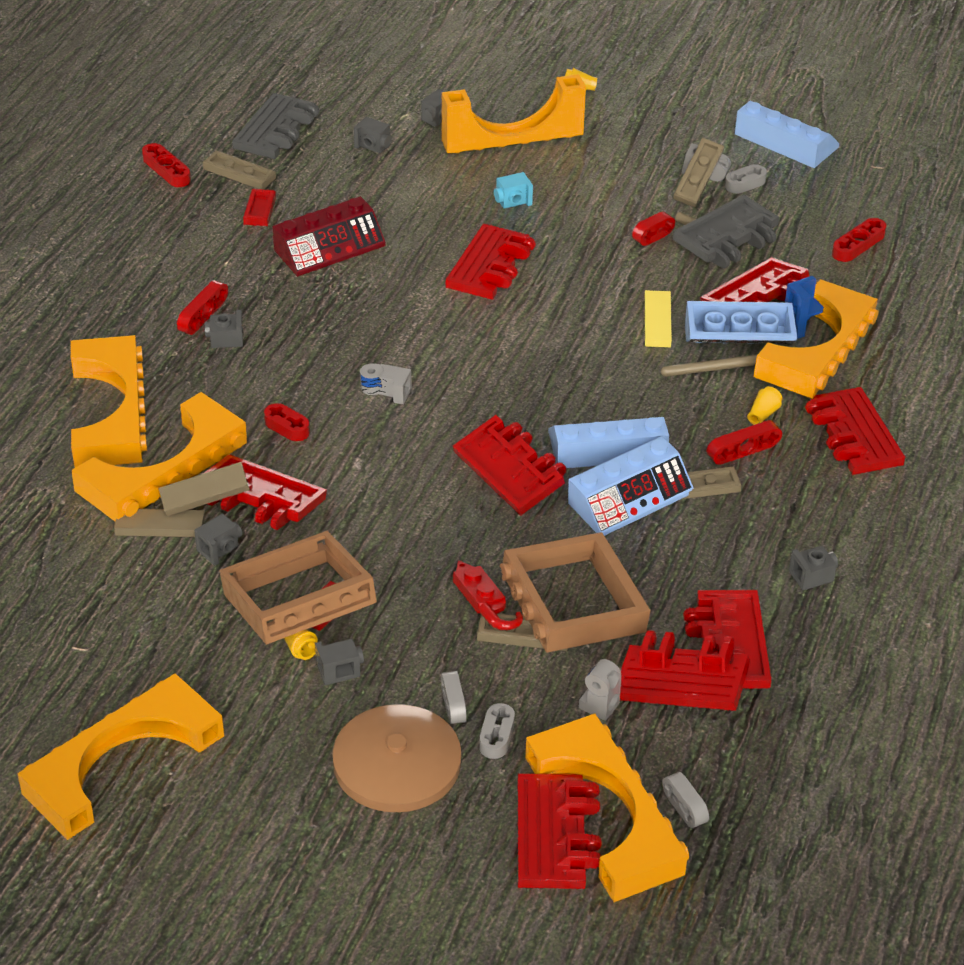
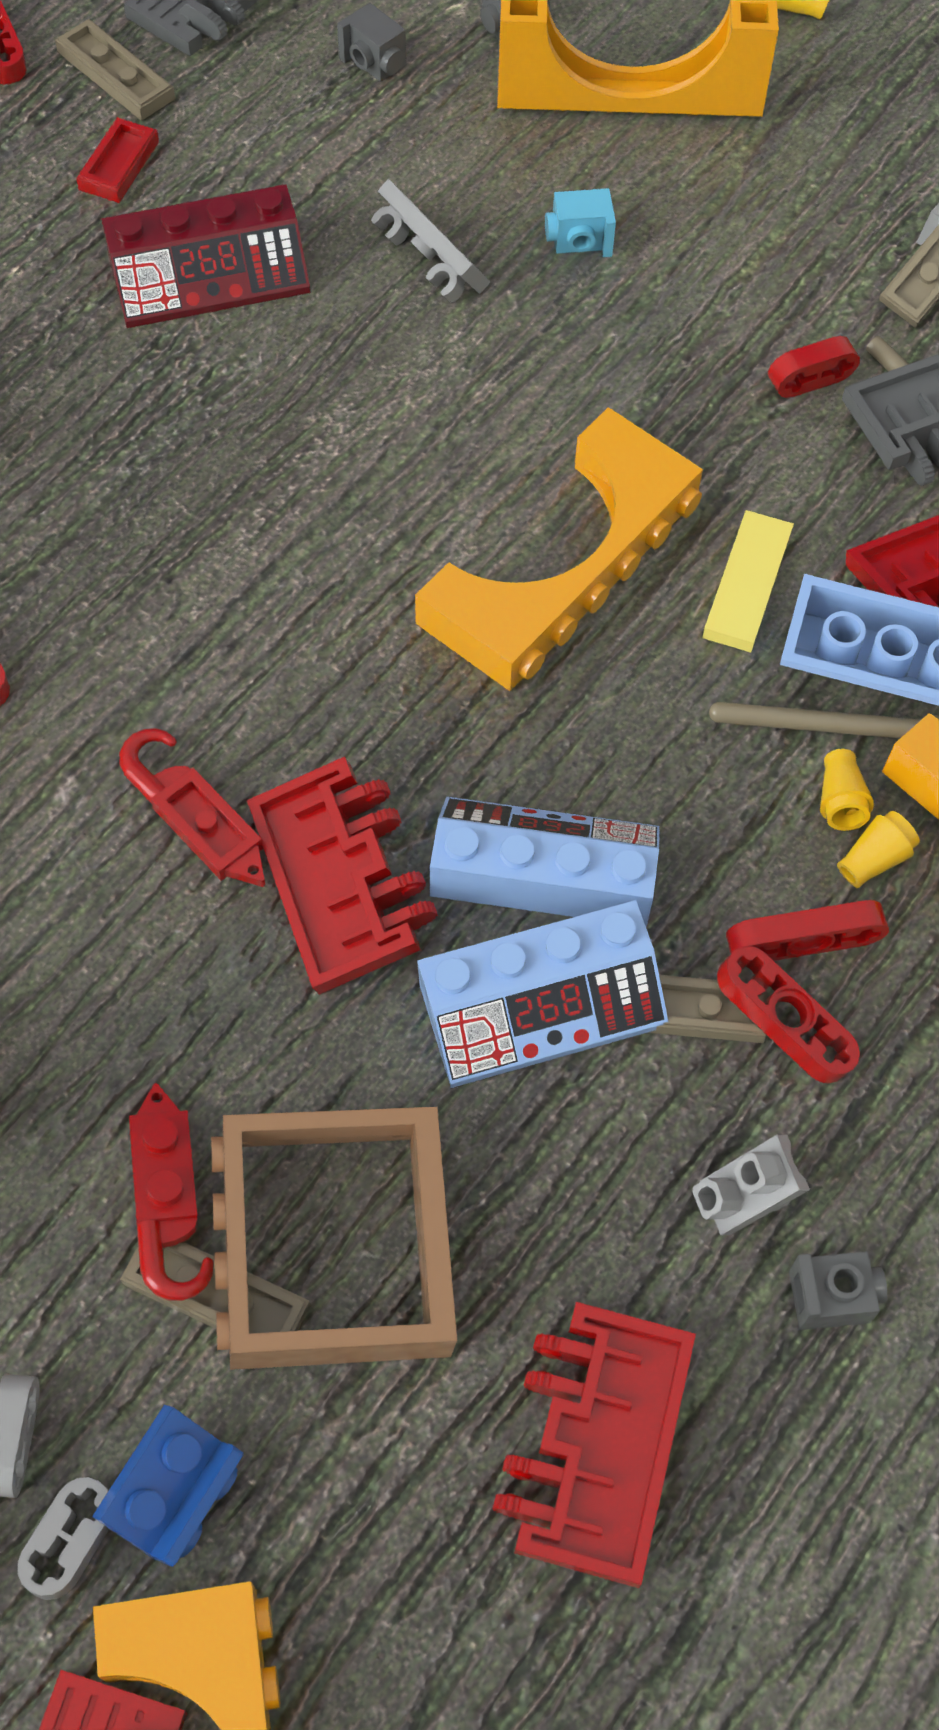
camera: 15 degrees right, 20 degrees up
(386, 381) = (185, 615): light grey leg -> none
(429, 455) = (195, 812): none -> red plate
(439, 210) = (429, 242): none -> light grey plate
(489, 261) = (481, 372): red hinge -> none
(538, 698) = (169, 1487): none -> blue bracket
(554, 353) = (513, 625): none -> light orange arch
(603, 689) = (292, 1514): light grey leg -> none
(688, 678) = (470, 1527): red hinge -> none
(734, 466) = (812, 1014): none -> red beam
(739, 388) = (844, 795): none -> yellow cone
(760, 533) = (751, 1186): none -> light grey hips

